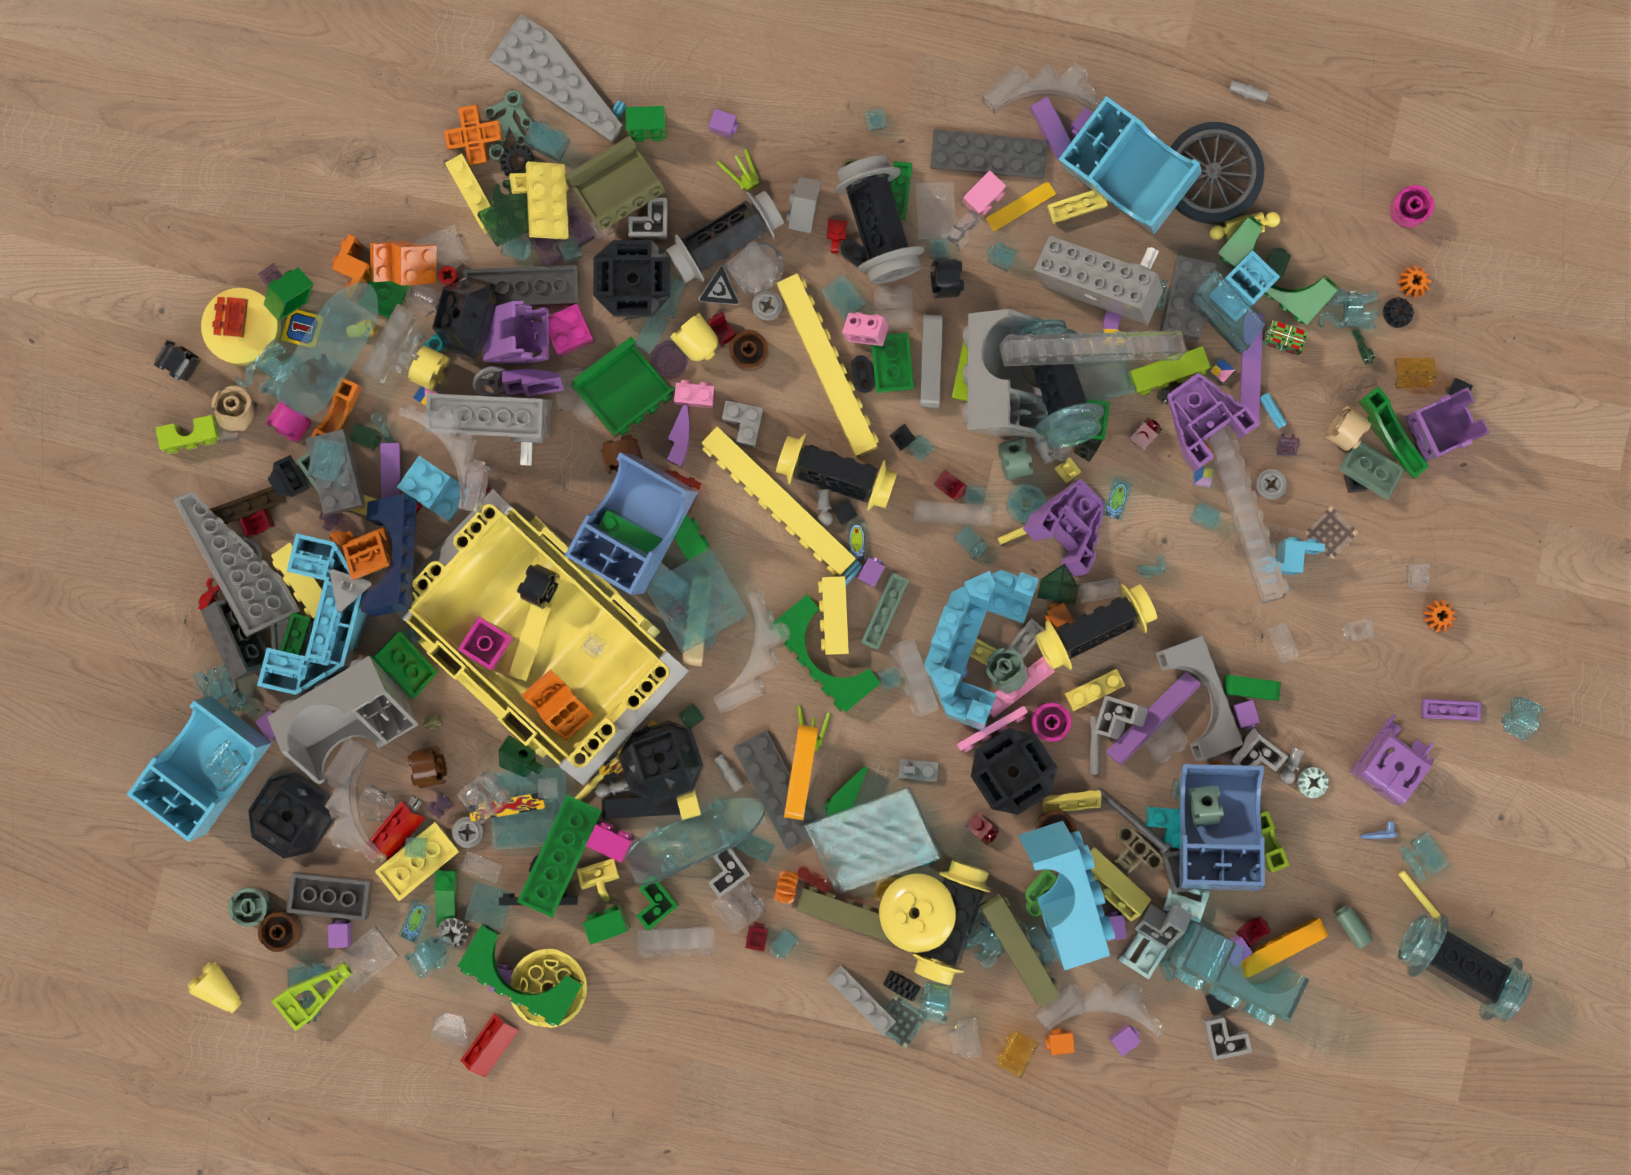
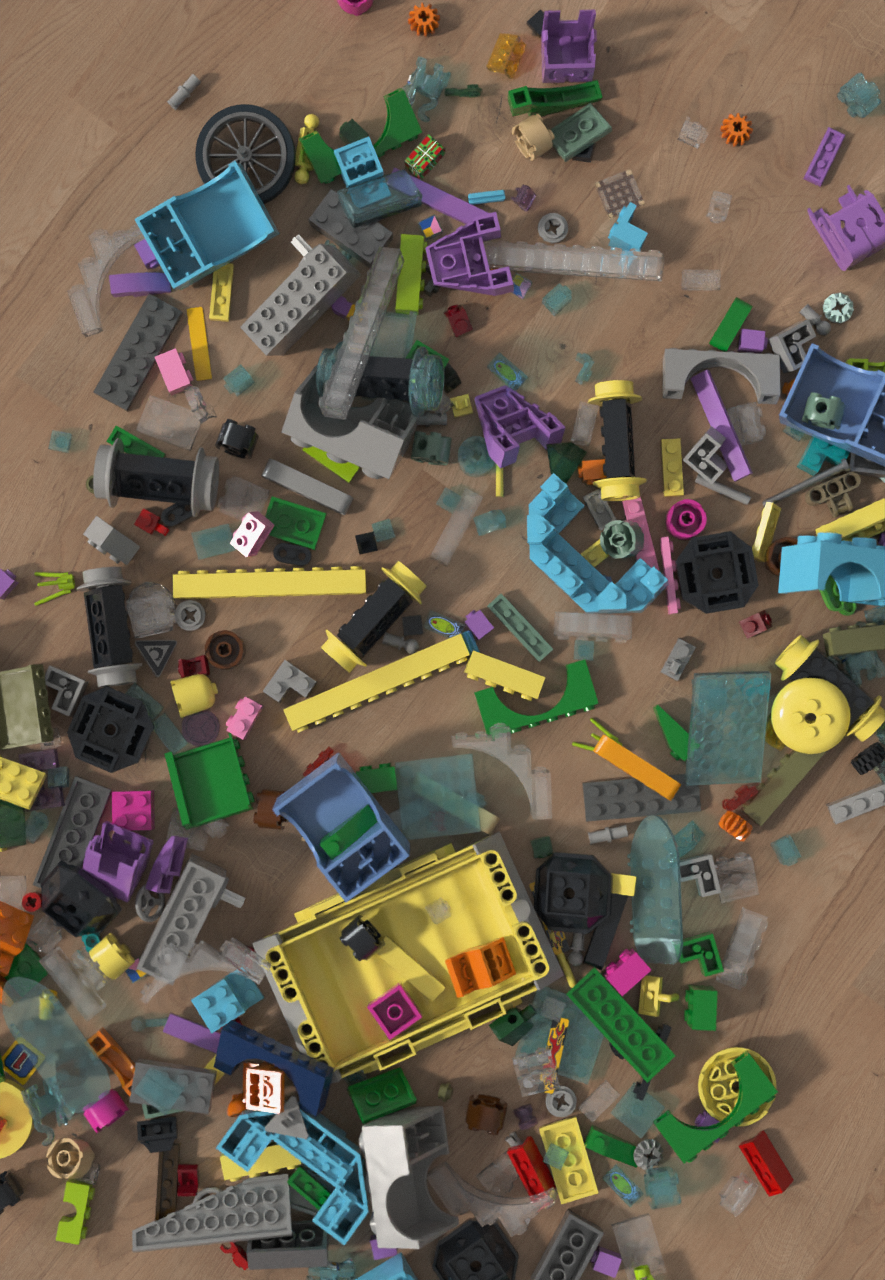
camera: 75 degrees left, 0 degrees up
(332, 520) = (216, 1108): tile -> none
(365, 436) = (150, 1043): clear green brick -> none
(680, 437) = (277, 747): medium lavender slope -> none
(757, 936) = (769, 872): dark red bracket -> none
(939, 249) = (206, 434): clear light blue plate -> none
(950, 485) = (430, 518): dark red bracket -> none
(1389, 313) = (444, 54): black gear -> none

